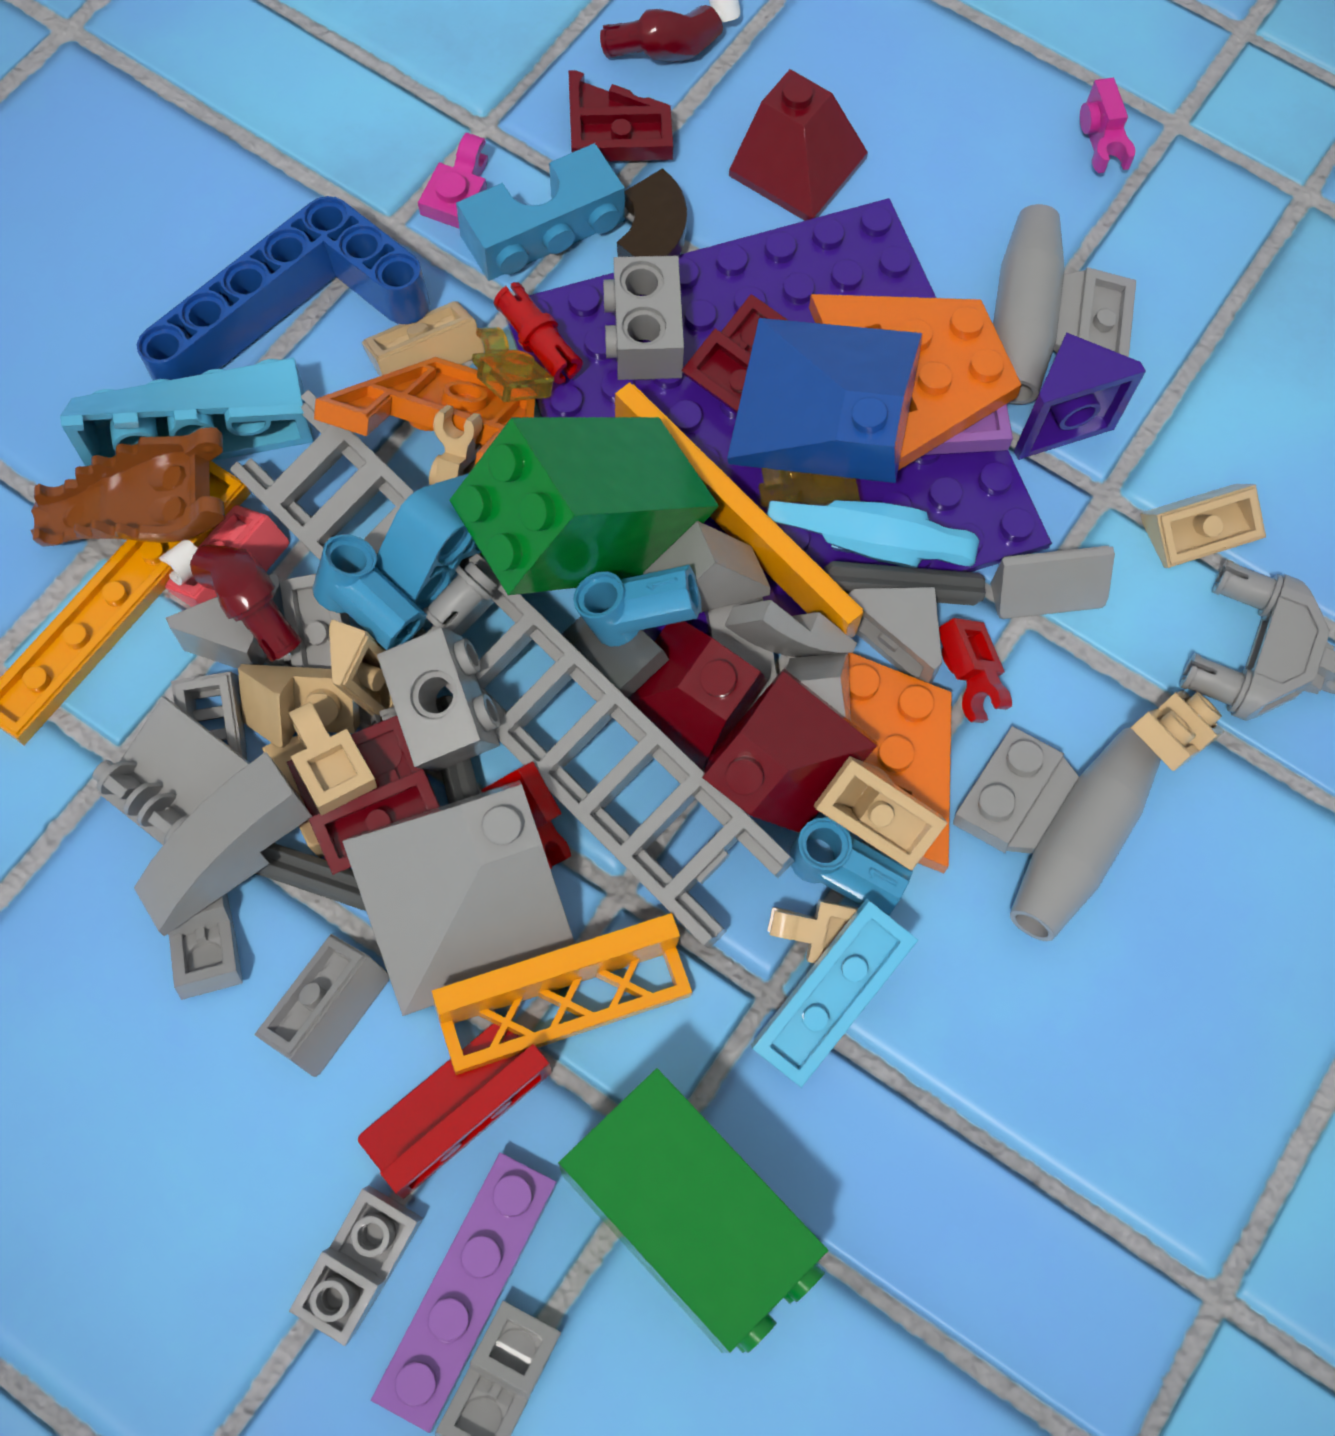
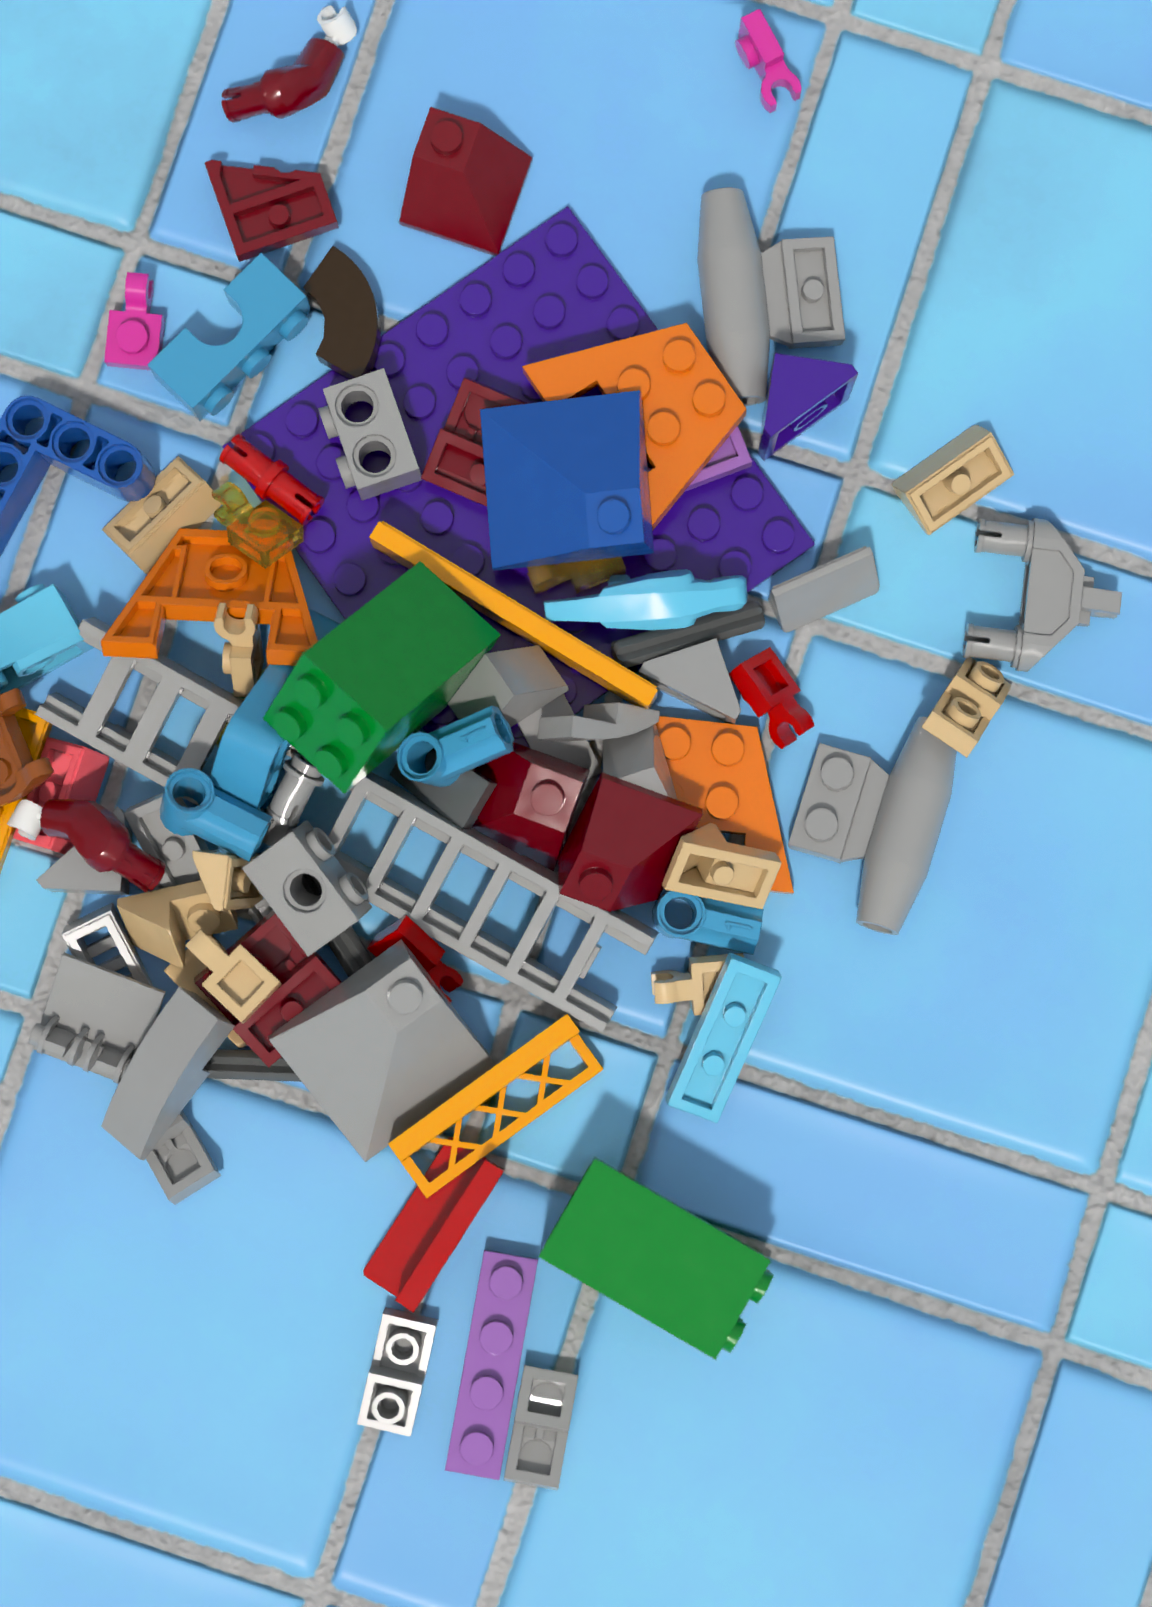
camera: 10 degrees left, 15 degrees up
(323, 1005) = (294, 1172): light grey slope -> none

